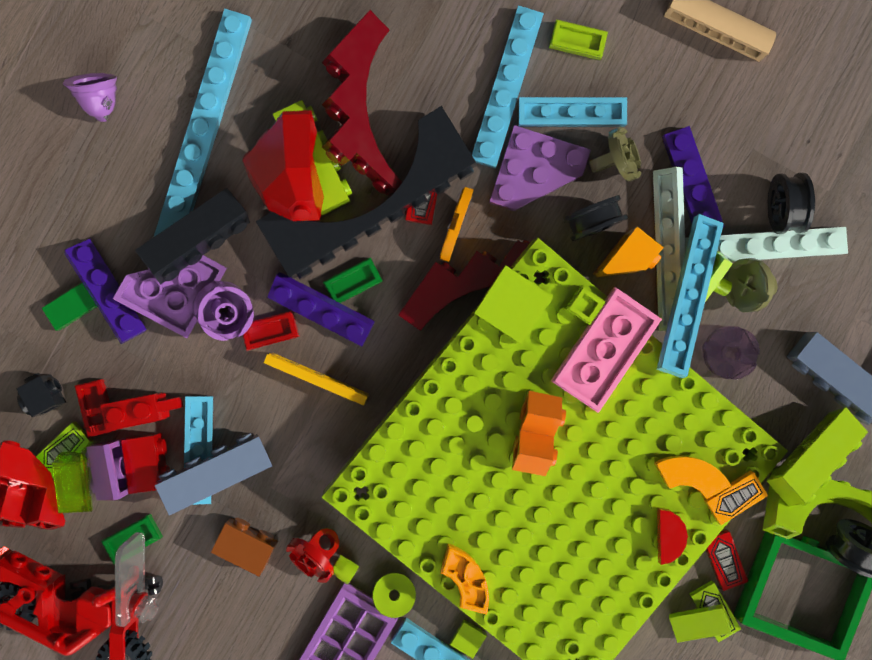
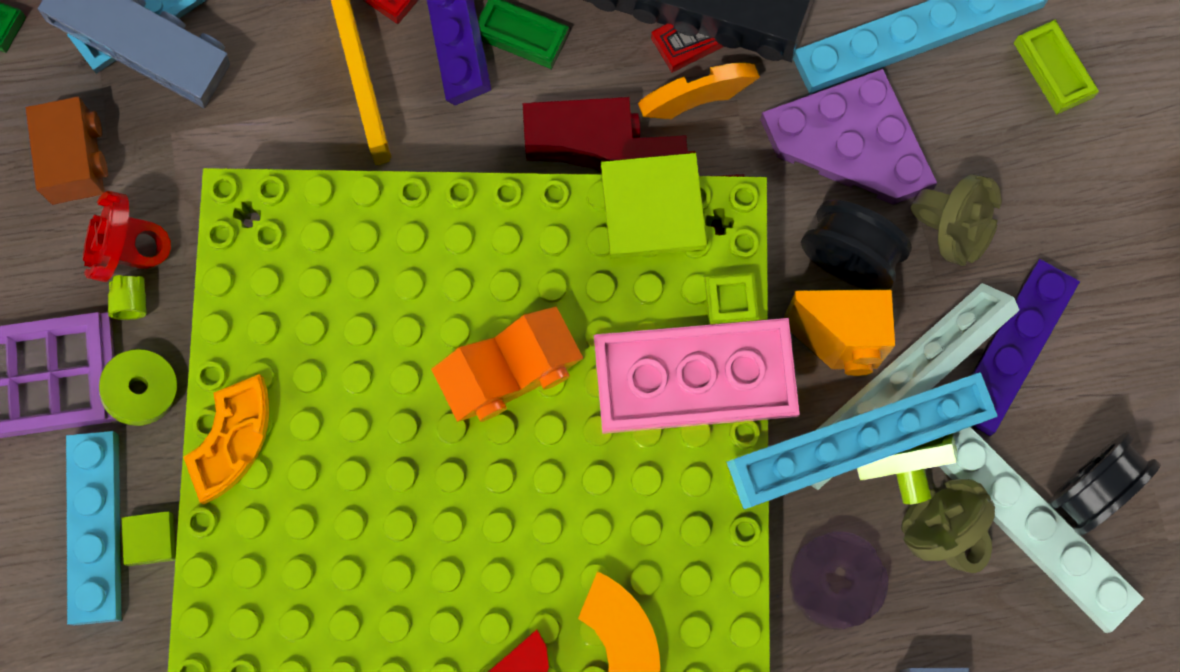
camera: 50 degrees right, 15 degrees down
(572, 111) = (962, 123): medium azure plate -> none

